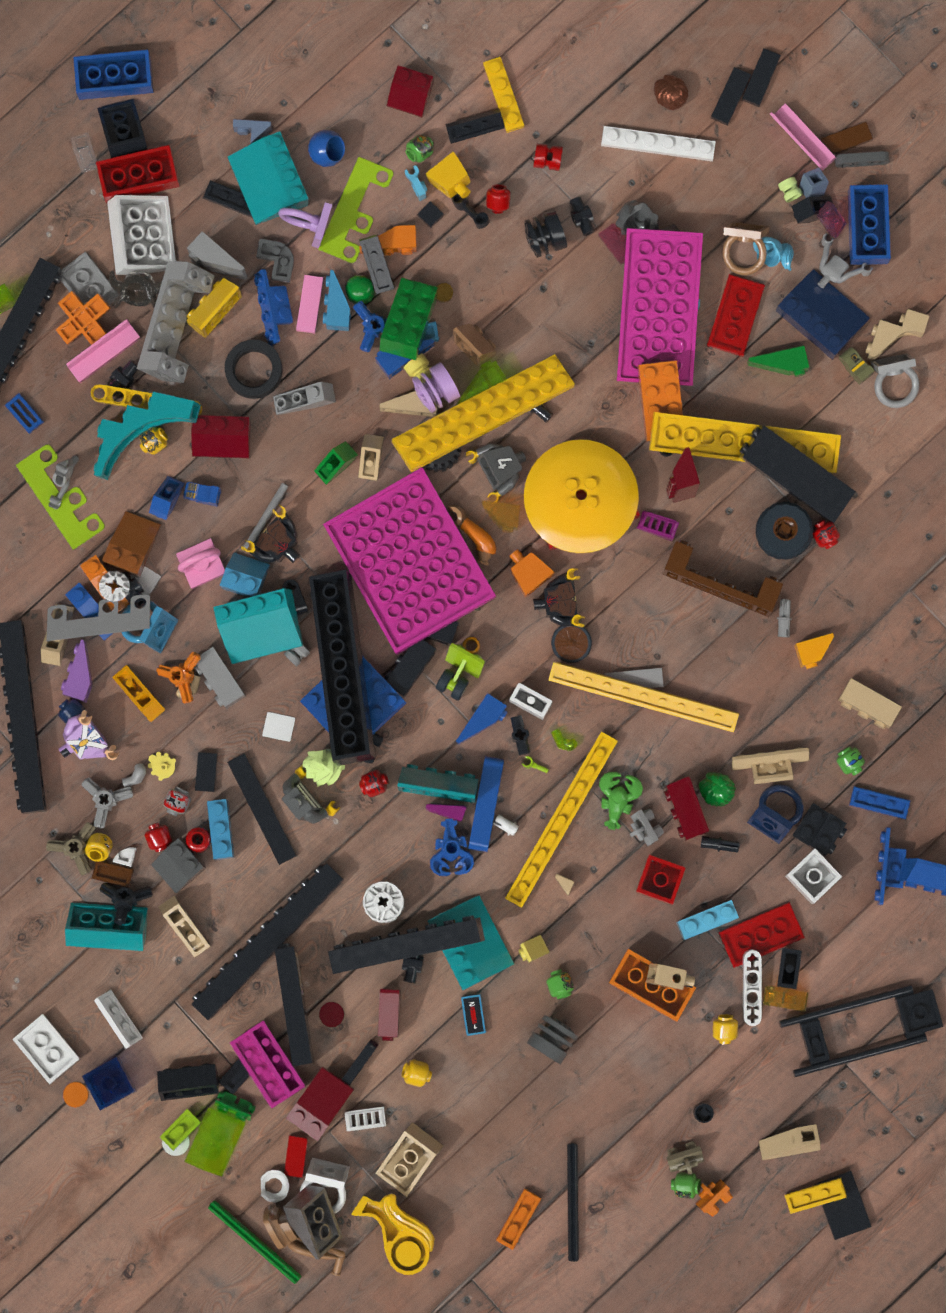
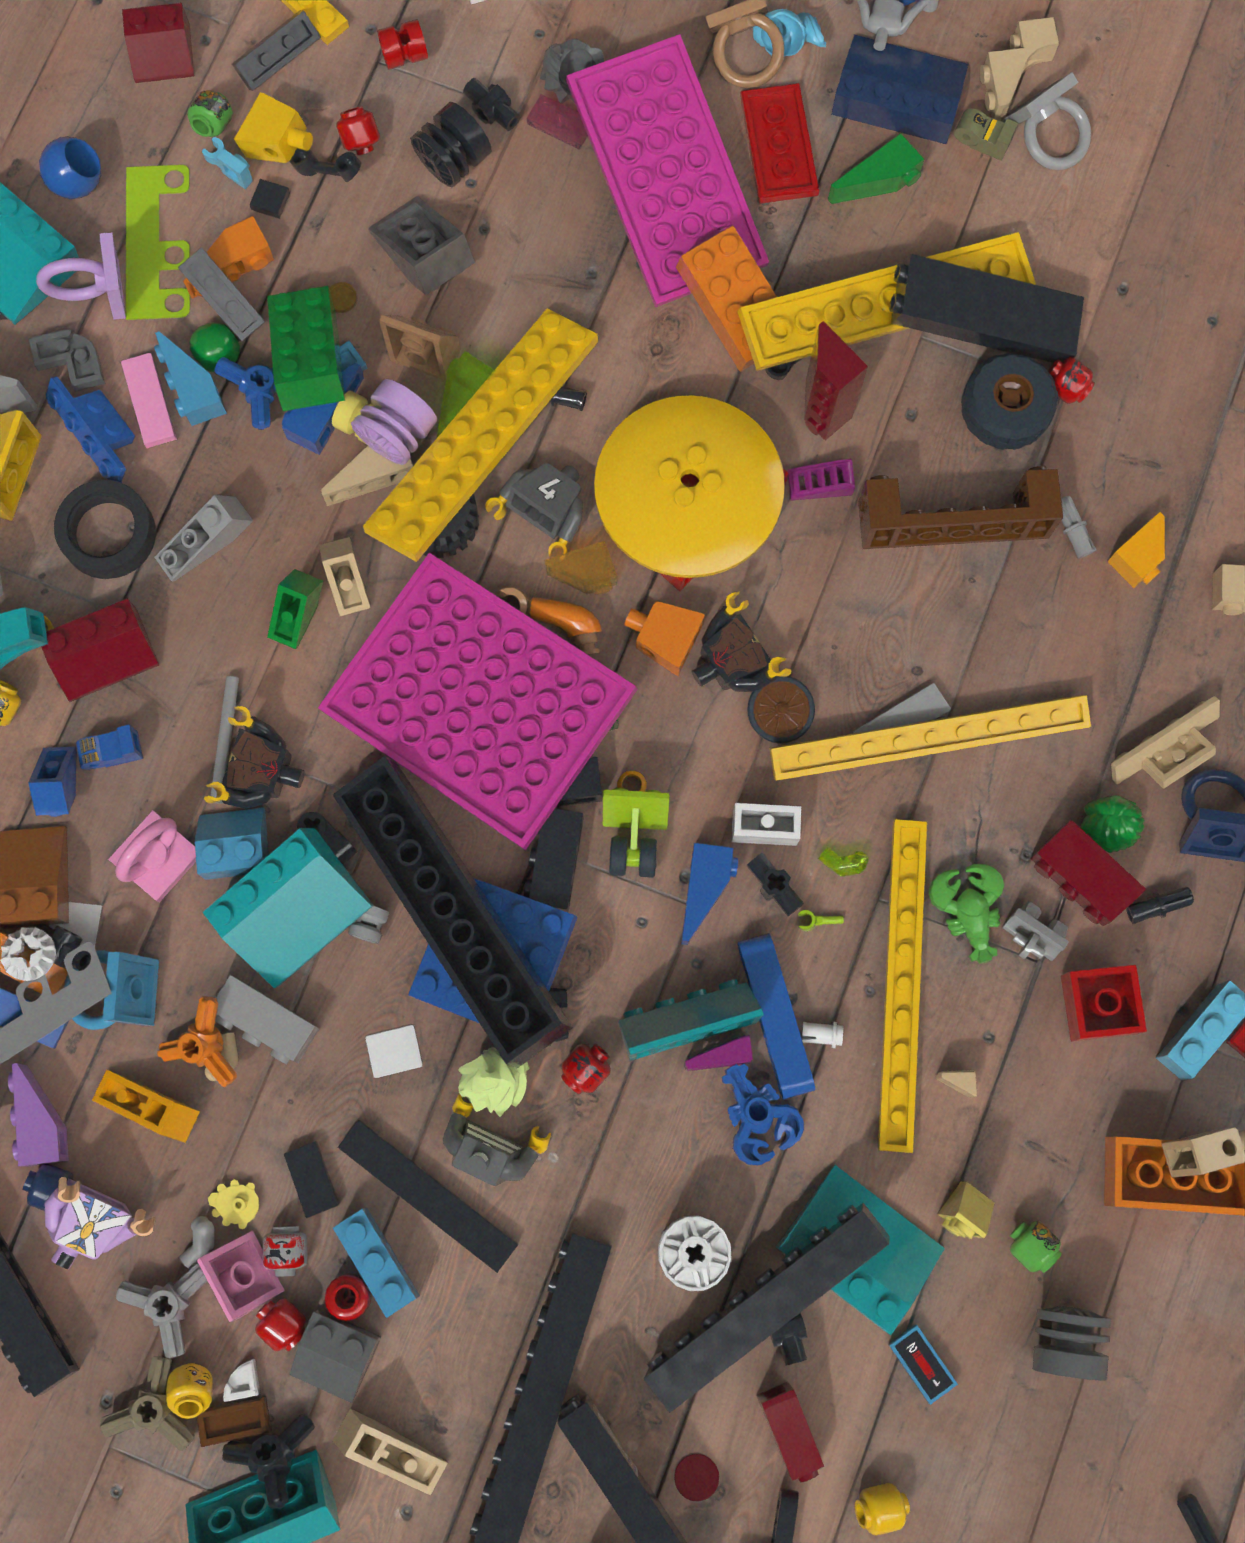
camera: 30 degrees left, 5 degrees down
(149, 803) = (239, 1276): none -> bright pink slope
(502, 283) = (423, 245): none -> flat silver slope

